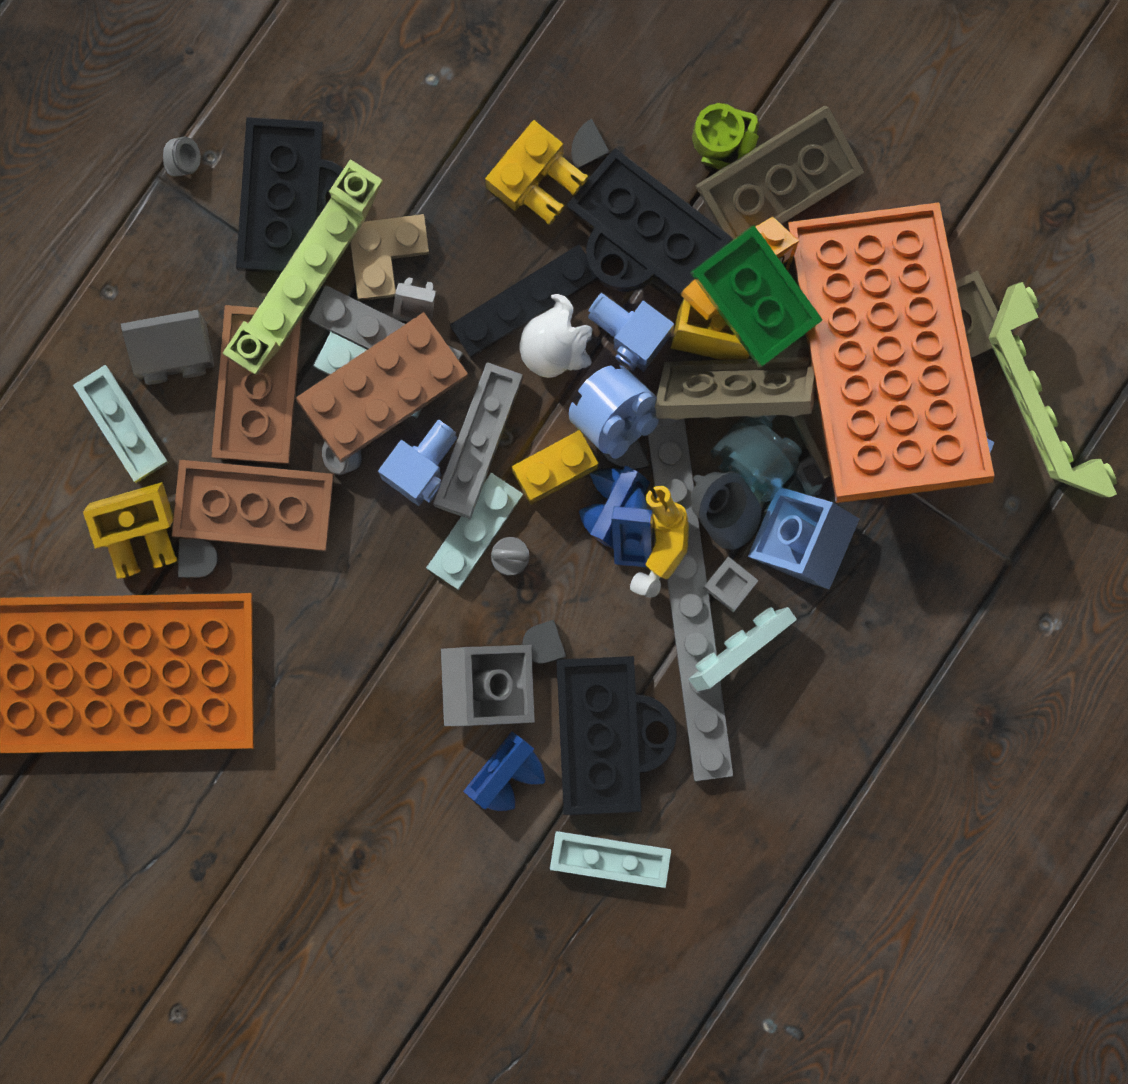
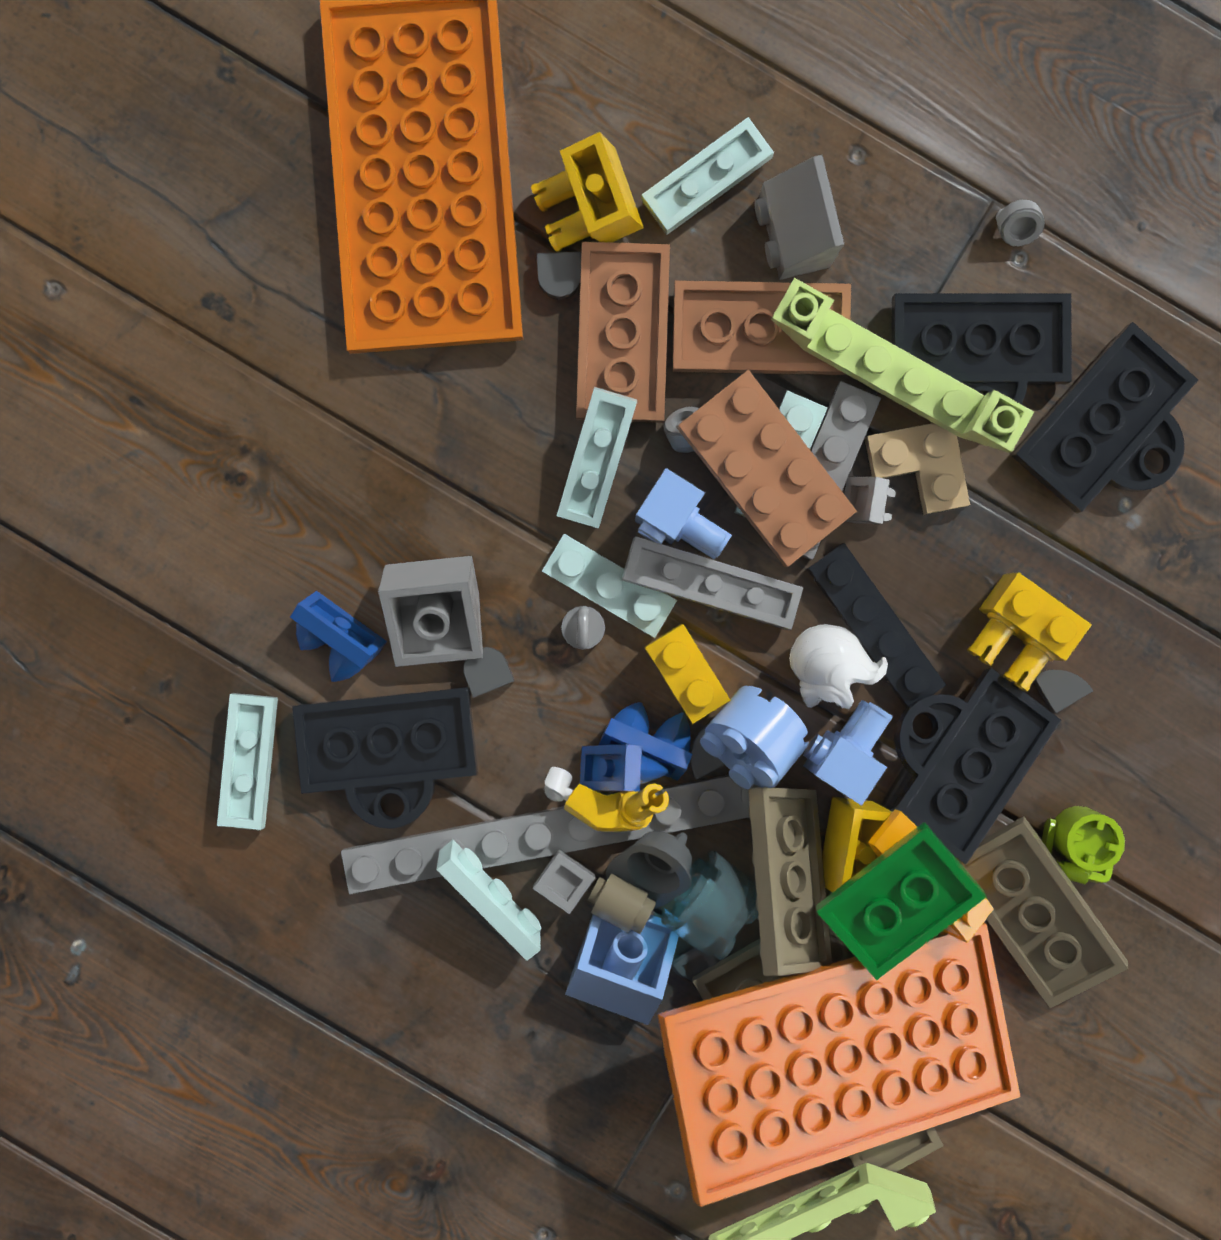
camera: 85 degrees right, 5 degrees up
(360, 89) = (1111, 423): none -> black plate
(362, 534) = (596, 457): none -> light aqua plate
(752, 535) = (621, 903): none -> dark tan brick

